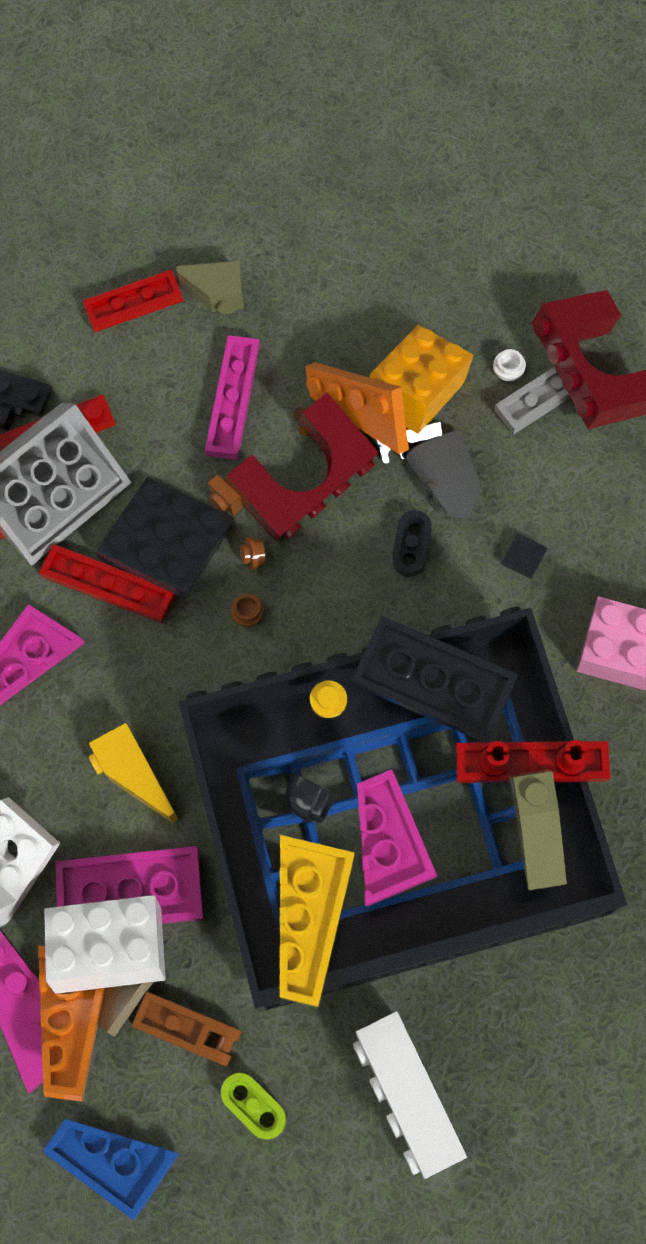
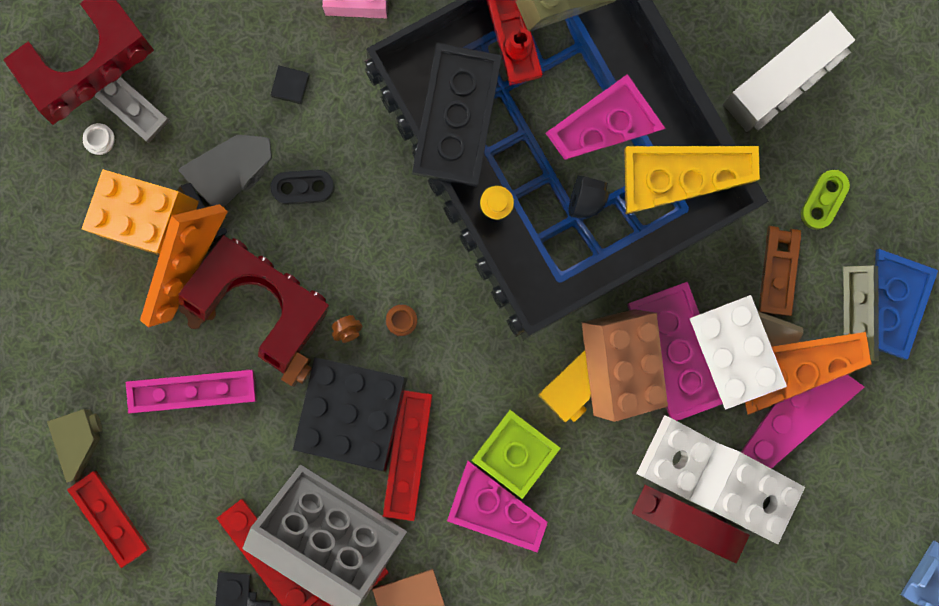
camera: 115 degrees left, 15 degrees up
(74, 690) = (516, 454): none -> lime plate
(116, 1113) = (862, 304): none -> plate
(128, 817) = (624, 364): none -> nougat brick

